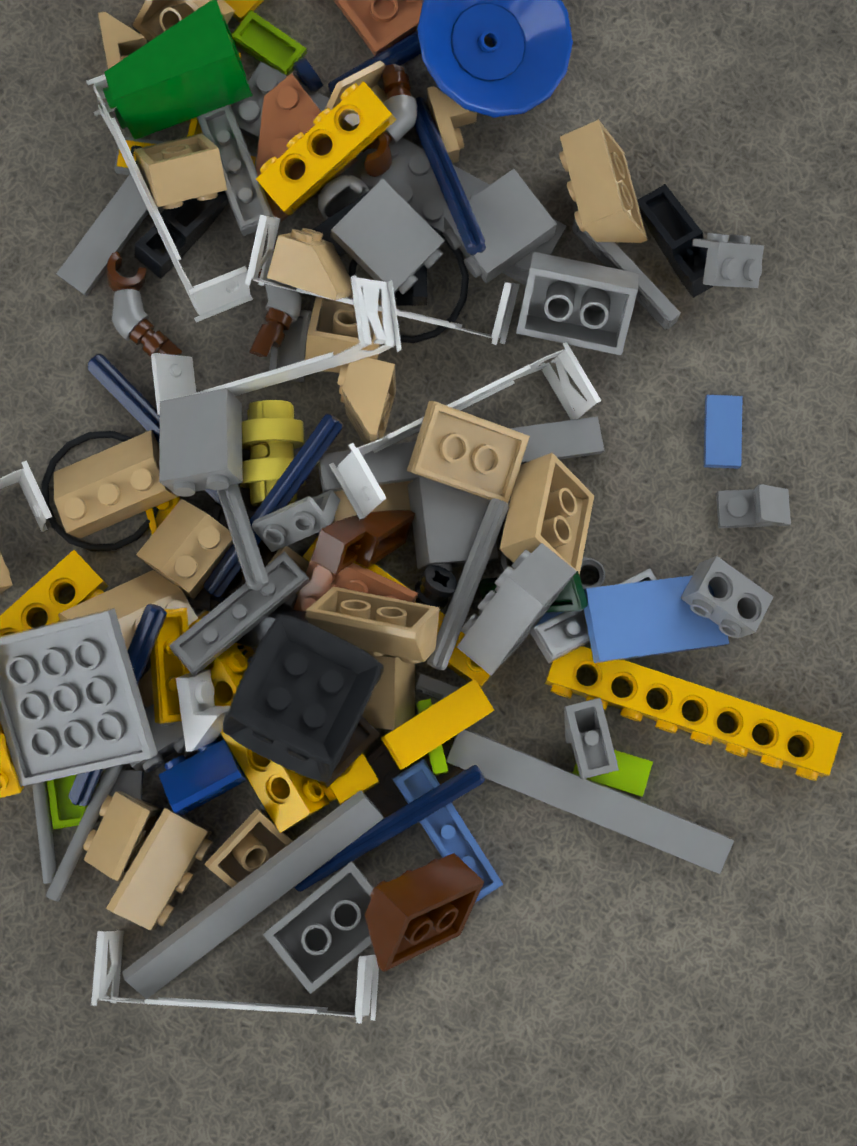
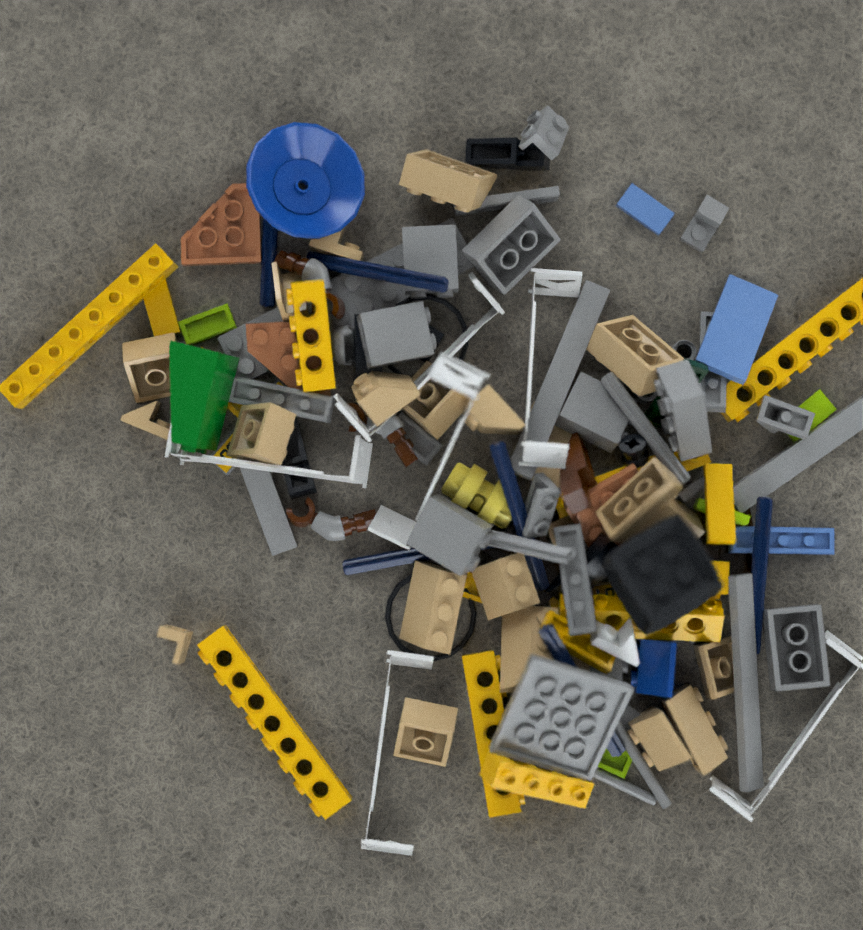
camera: 55 degrees left, 5 degrees up
(307, 74) = (246, 313): dark blue tile -> none
(421, 909) = (822, 586): reddish brown slope -> none
(467, 452) = (565, 375): tan tile -> none
(729, 590) = (750, 274): light grey brick -> none

